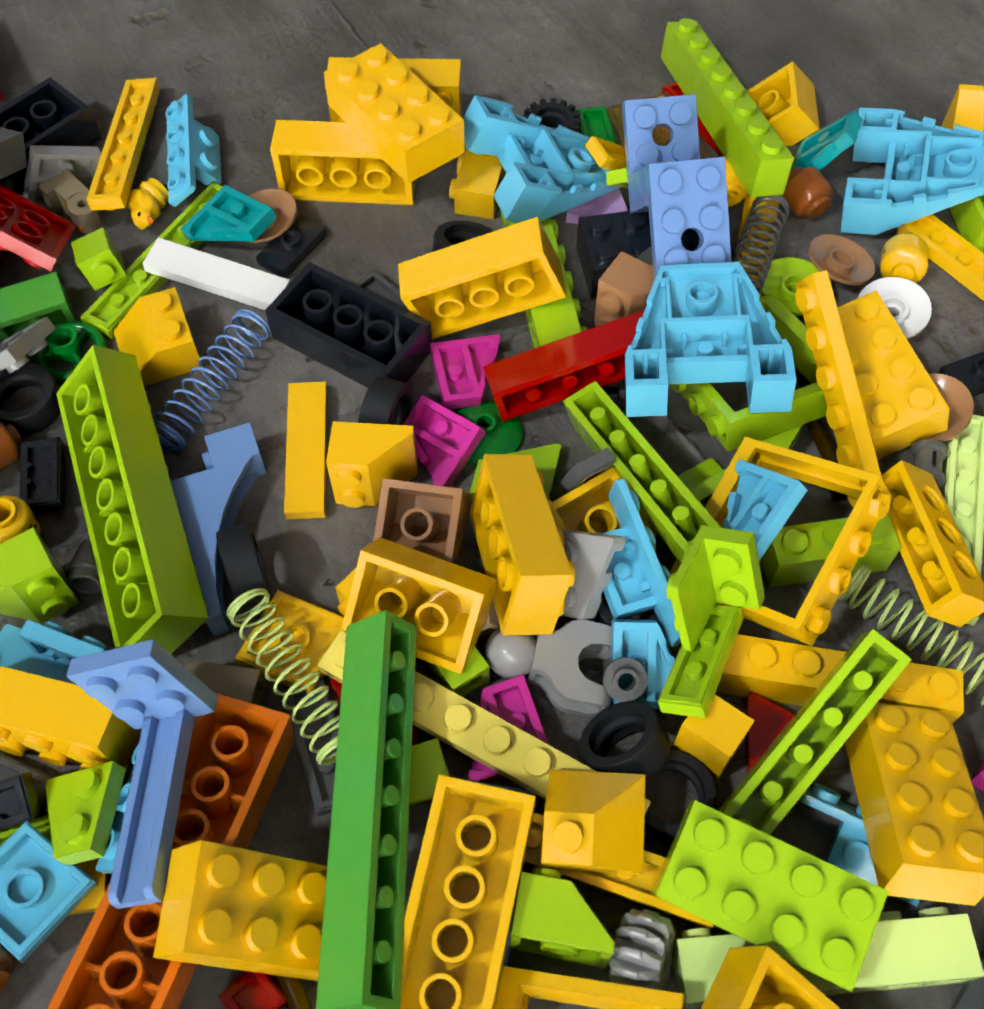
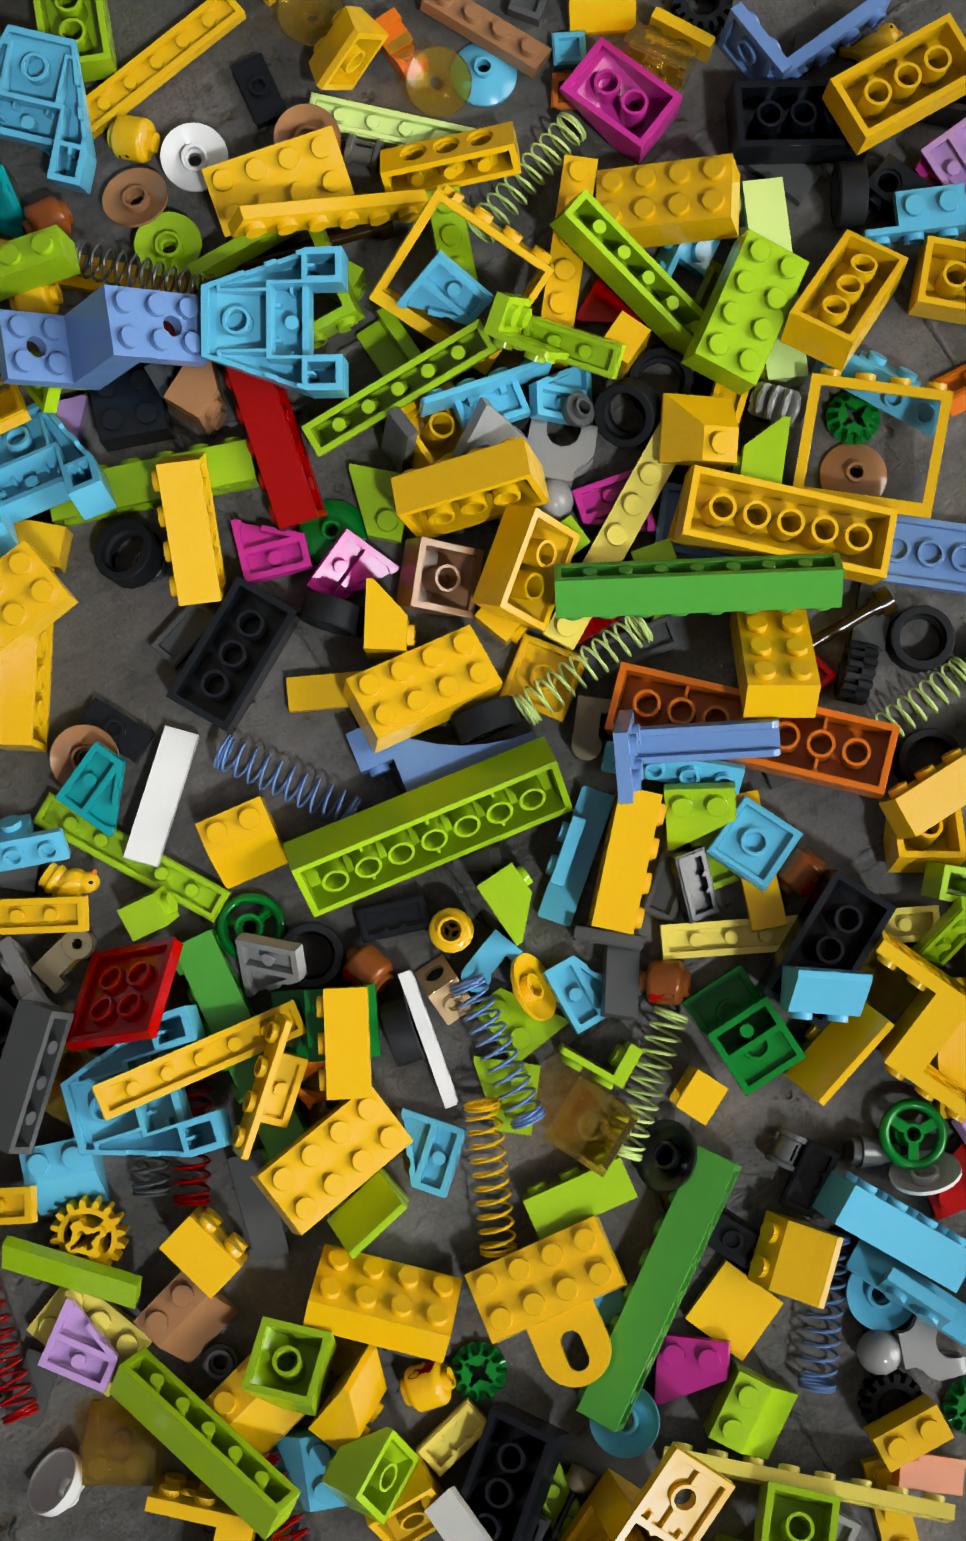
camera: 95 degrees left, 25 degrees up
(287, 493) = (421, 688): none -> yellow brick

